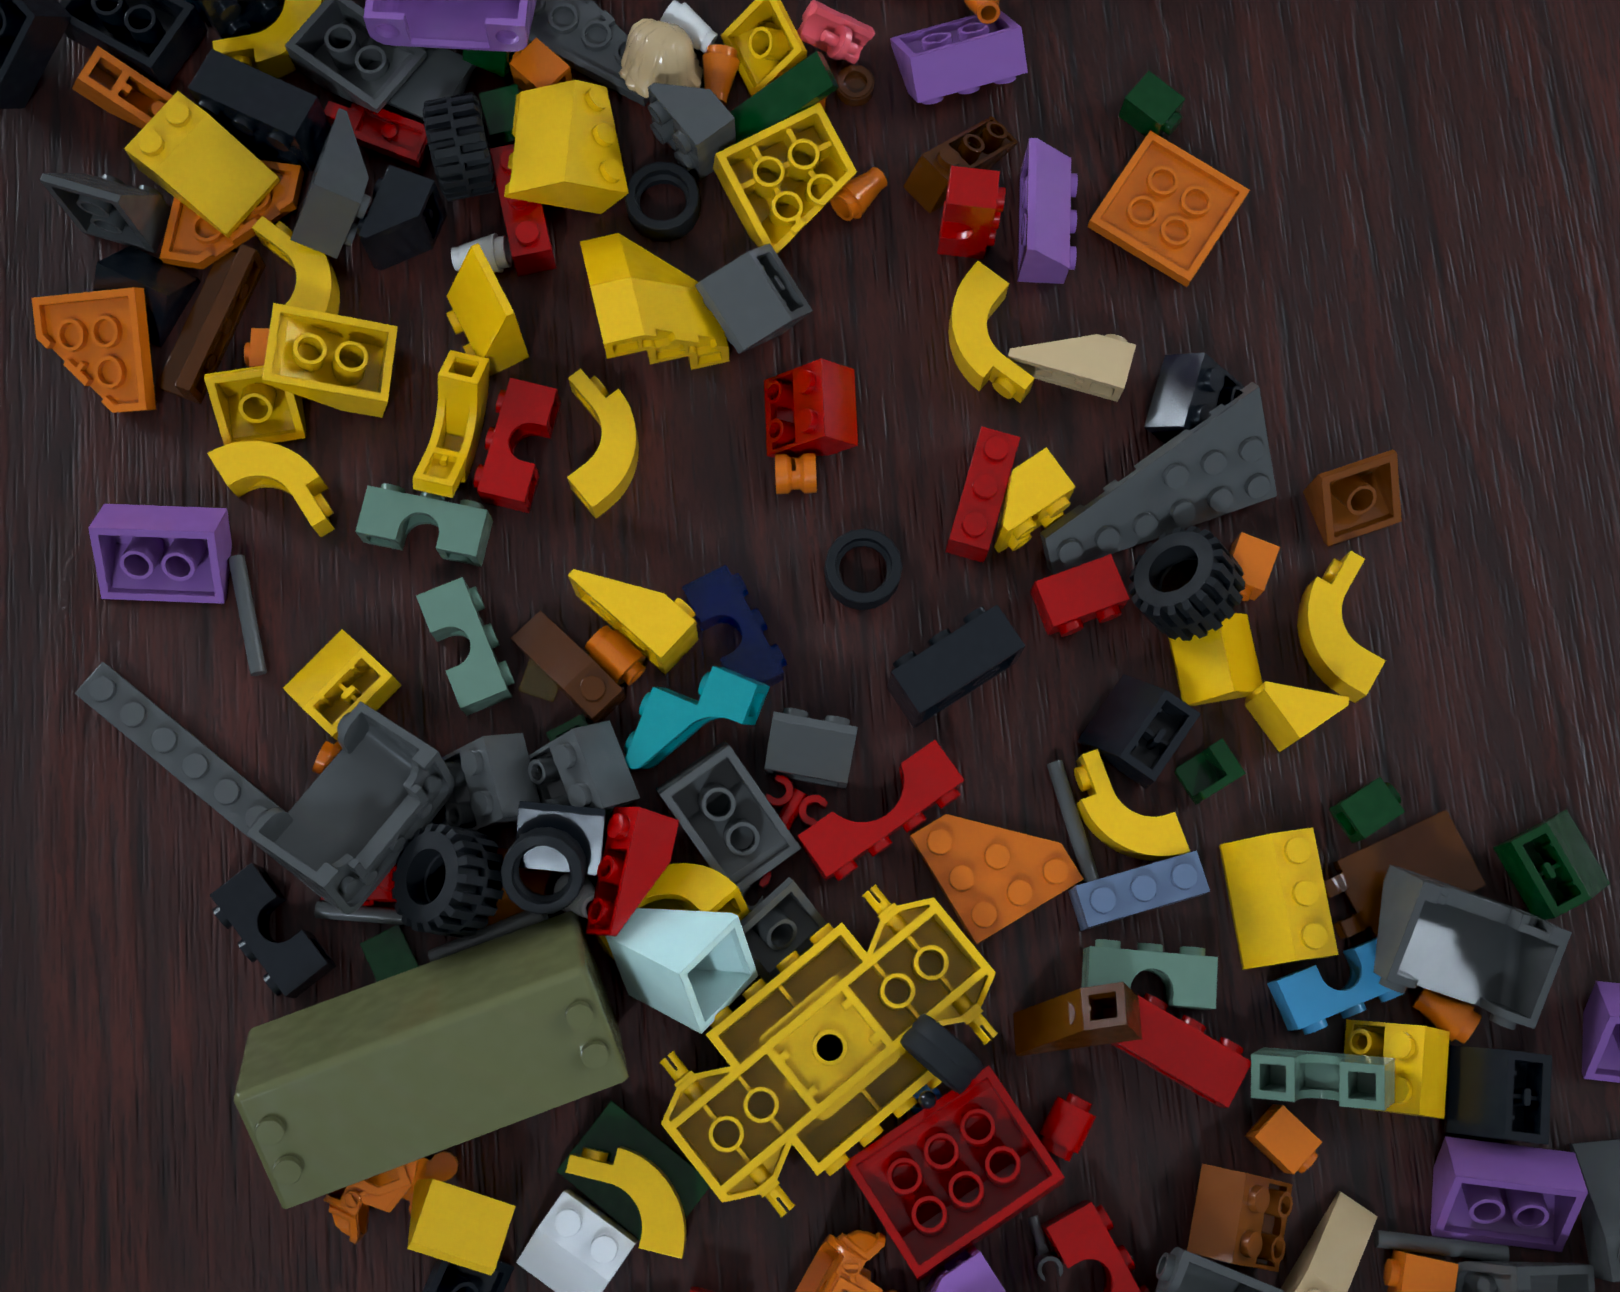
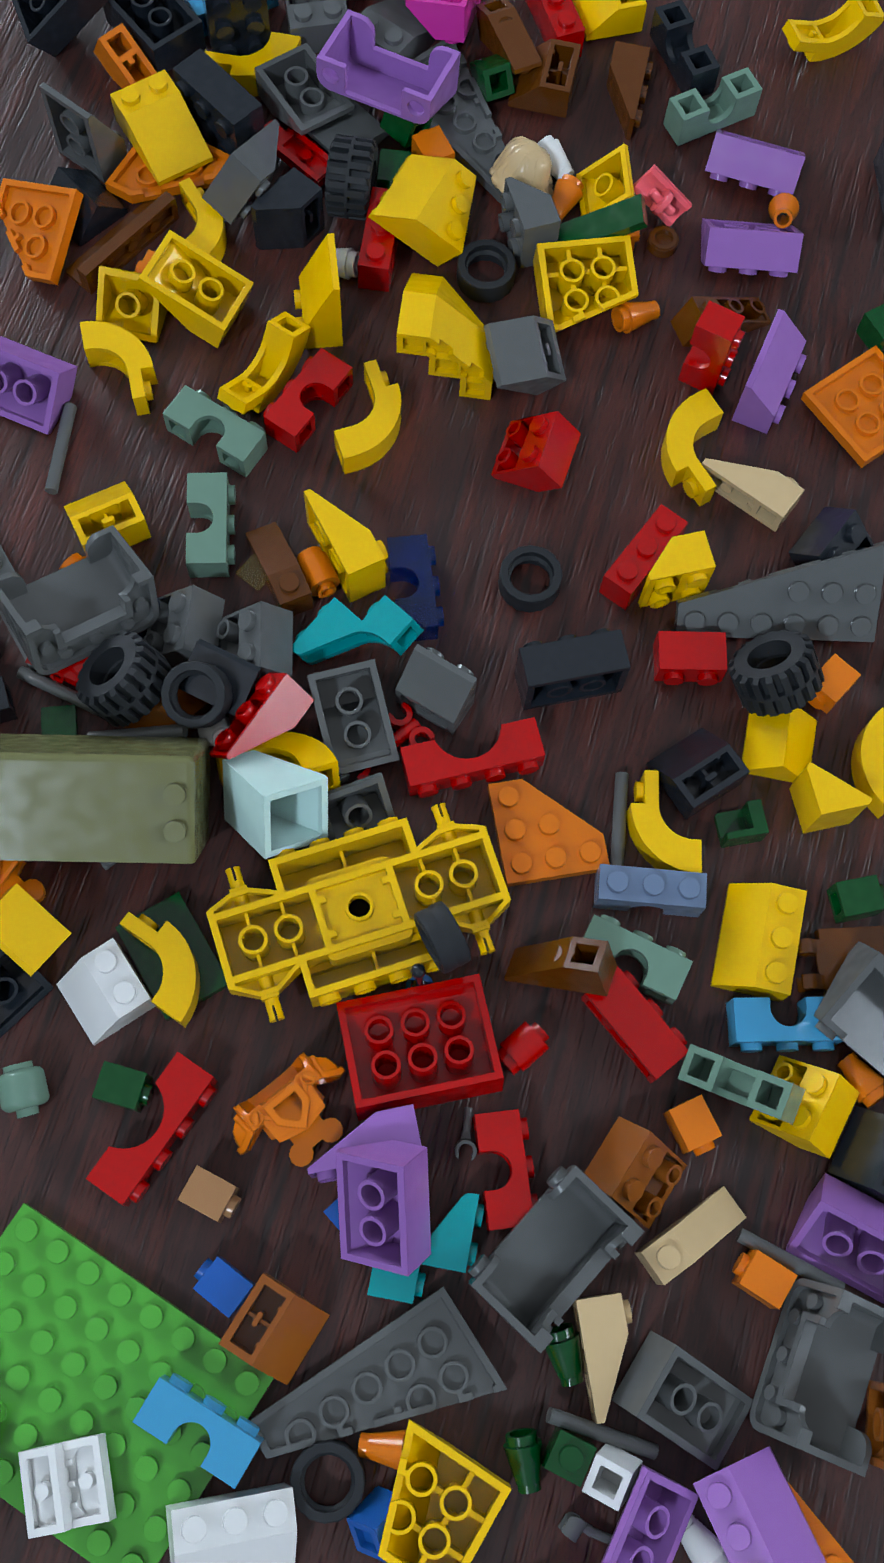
camera: 20 degrees right, 5 degrees down
(795, 473) = (506, 492): orange wheel -> none

